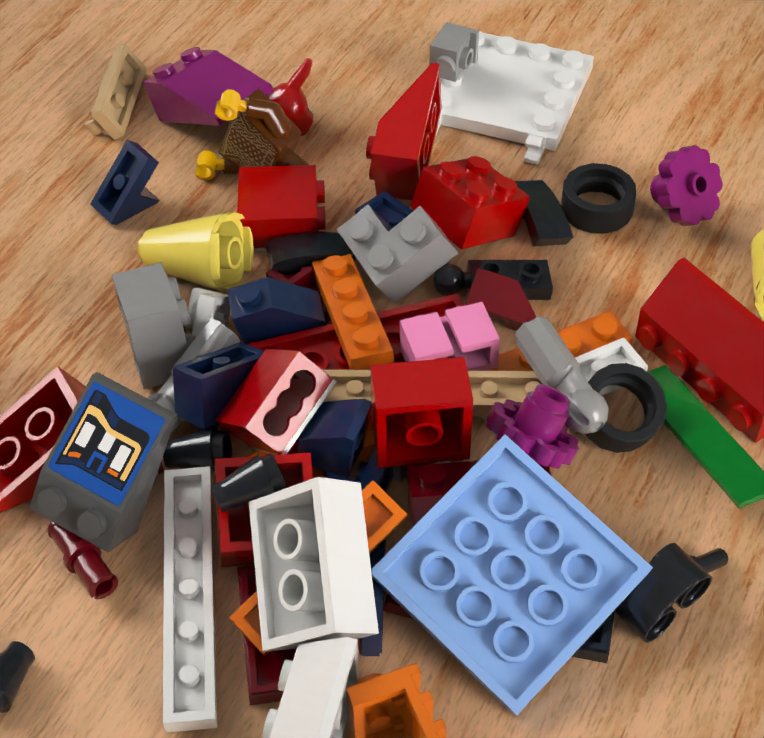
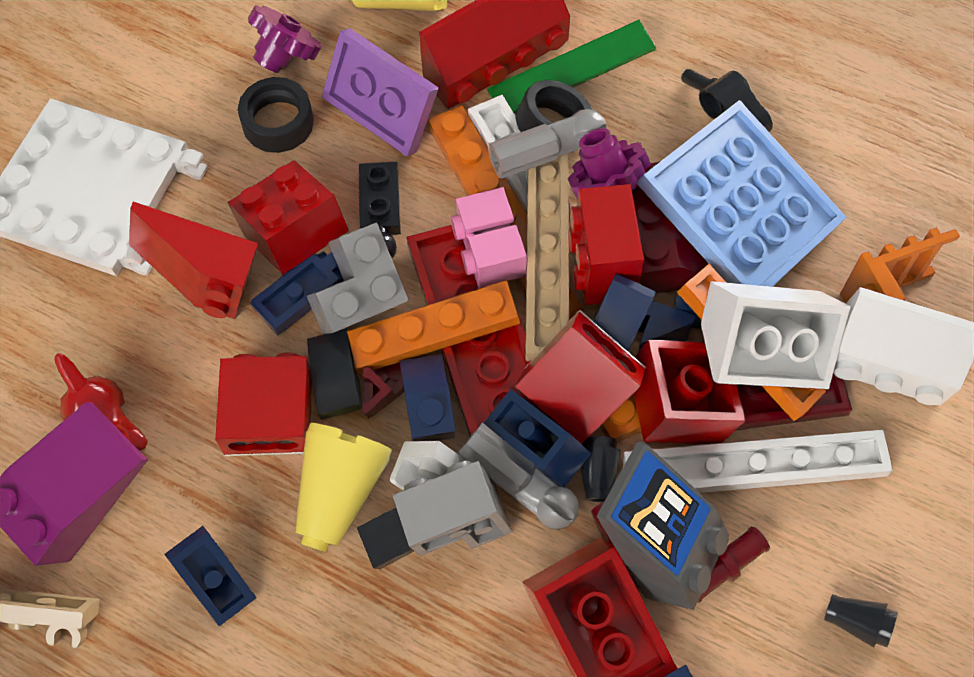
camera: 90 degrees left, 15 degrees up
(249, 482) = (697, 381): black cone -> none
(255, 136) = (167, 422): reddish brown torso -> none
(454, 50) = (44, 218): light grey brick -> none
(502, 298) = (418, 201): dark red slope -> none
(544, 215) = (312, 155): black slope -> none
(630, 262) = (379, 92): none -> medium lavender plate

